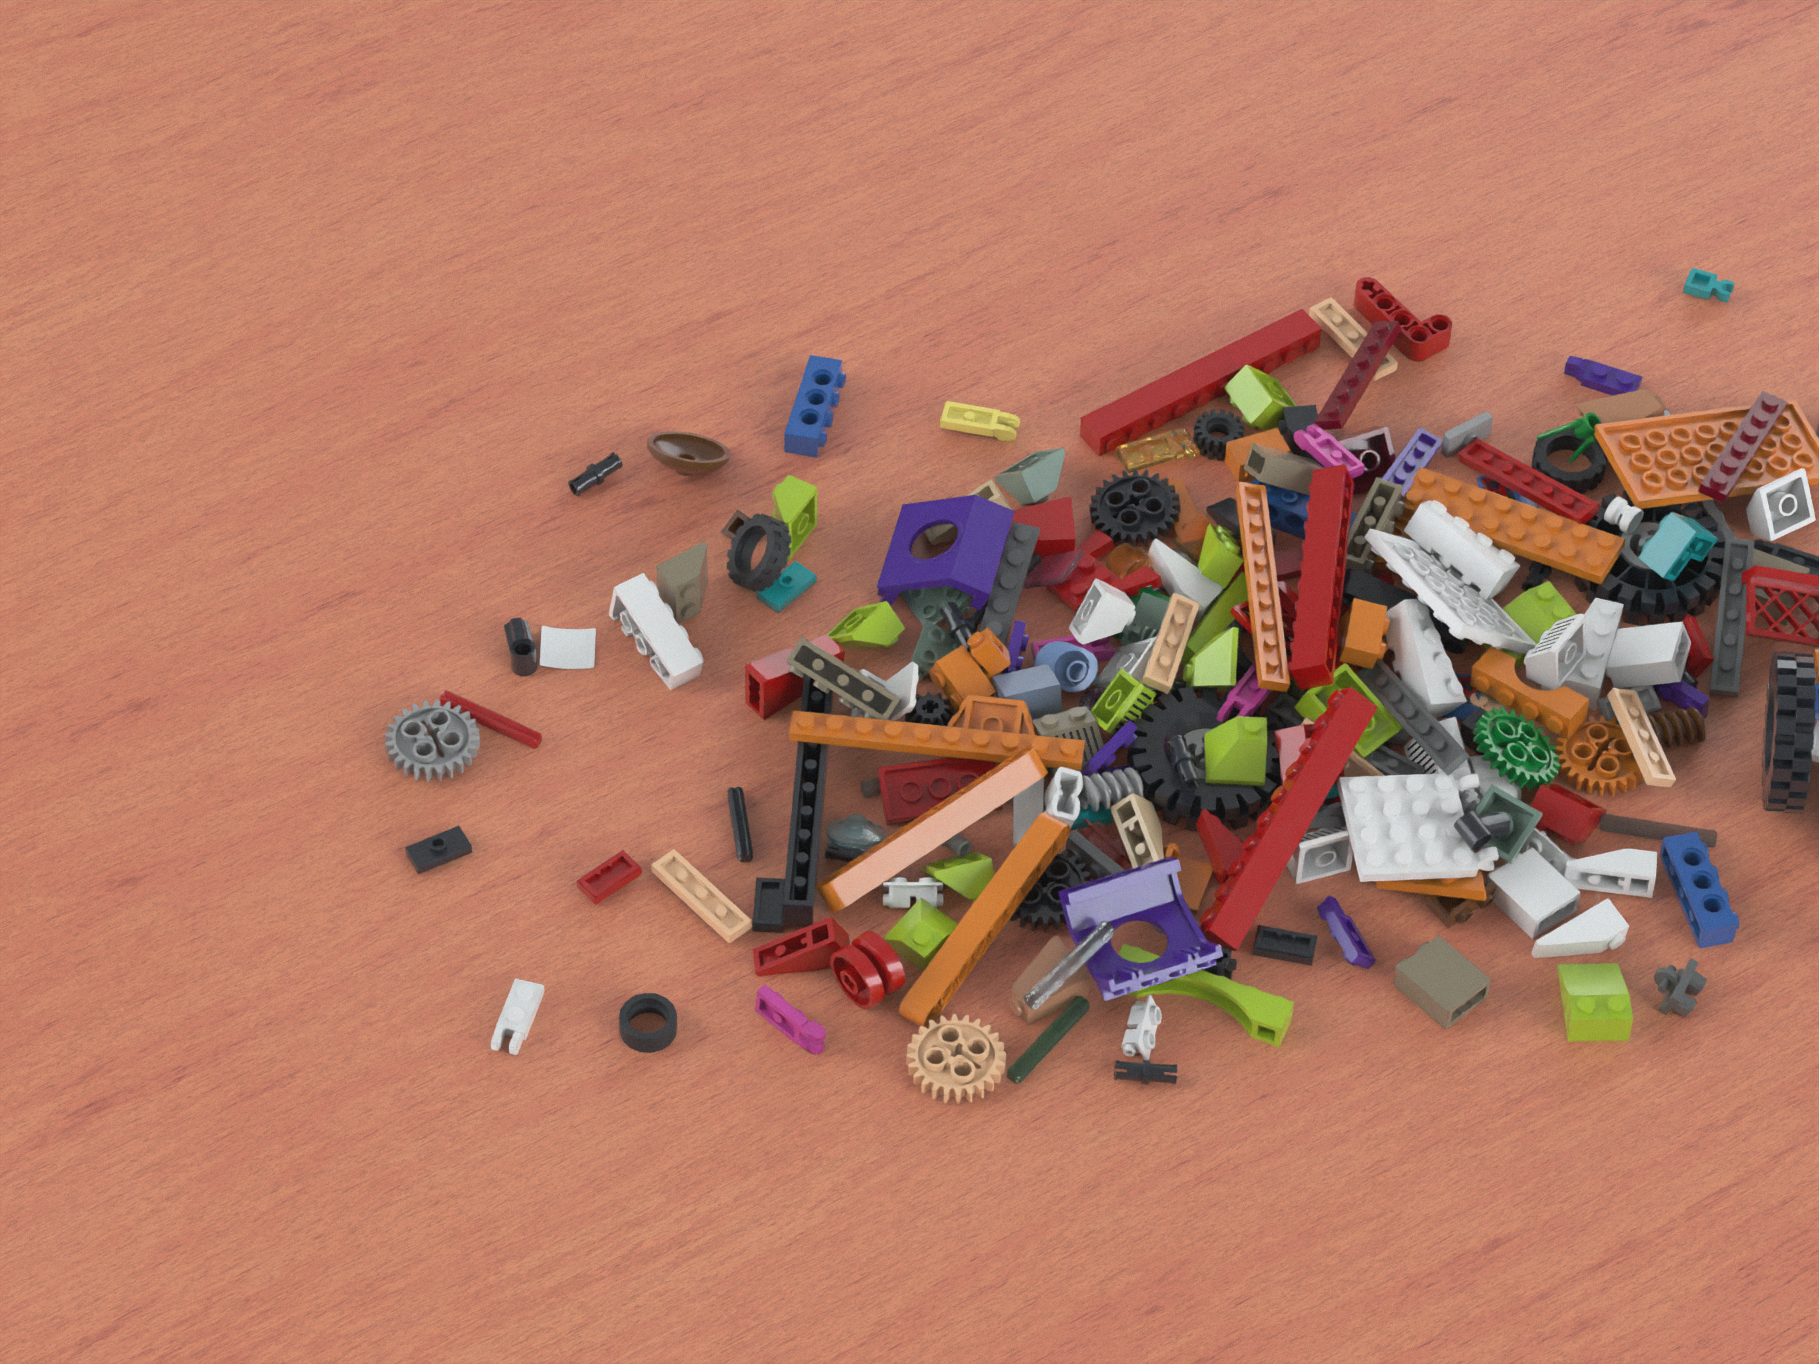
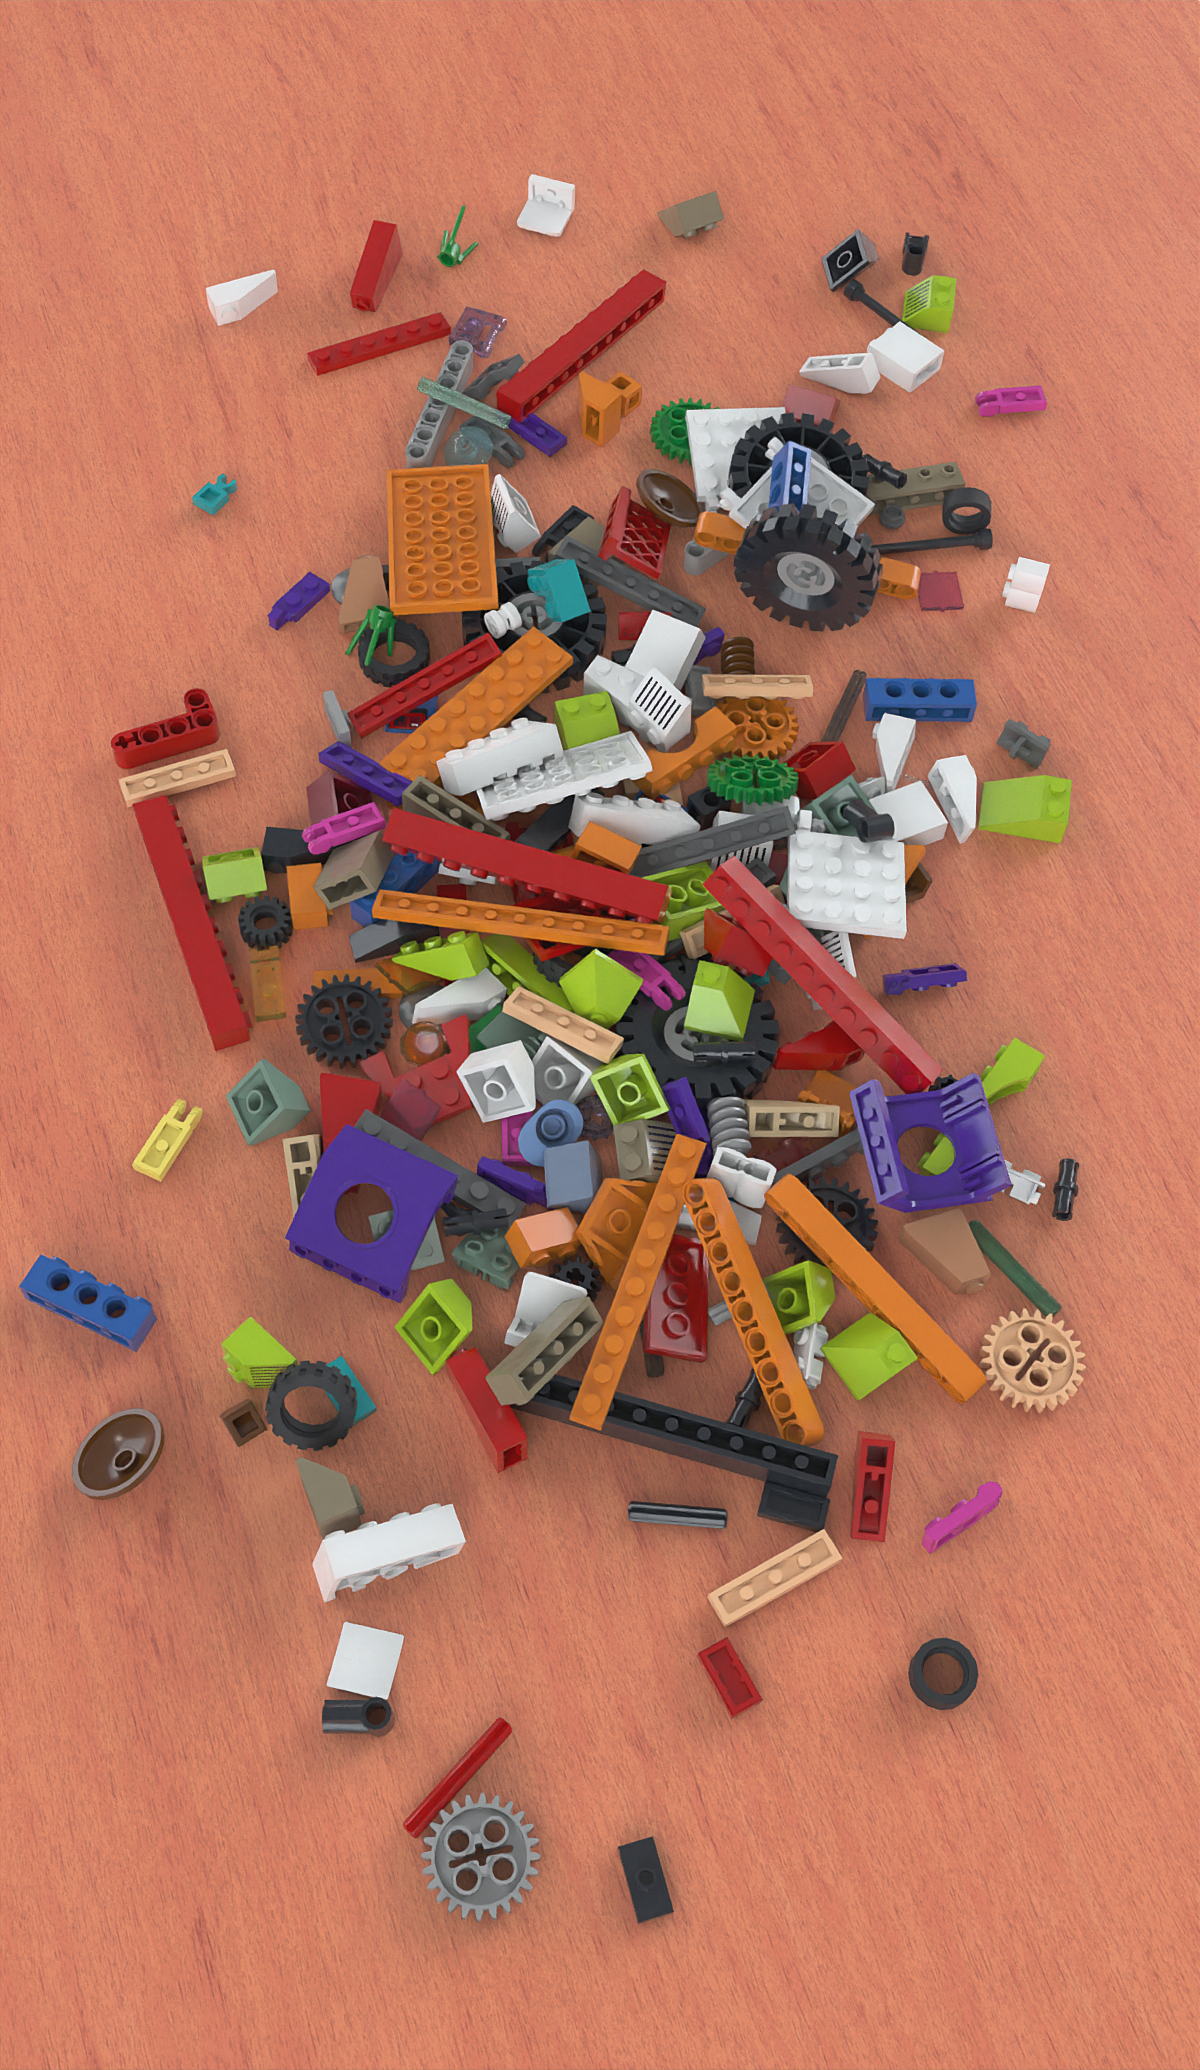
camera: 80 degrees left, 10 degrees up
(518, 1014) = (907, 1825): white hinge -> none
(595, 474) = (107, 1573): black pin -> none
(855, 831) = (724, 1402): clear light blue dish -> none
(867, 970) = (923, 1418): red wheel -> none
(989, 652) = (526, 1198): orange brick -> none
(1069, 965) = (958, 1219): clear smoke axle -> none
(1285, 945) = (931, 1027): black plate -> none
(1358, 375) = (245, 780): dark red plate -> none
(1441, 982) = (994, 916): dark tan brick -> none
(1742, 447) = (446, 514): plate -> none

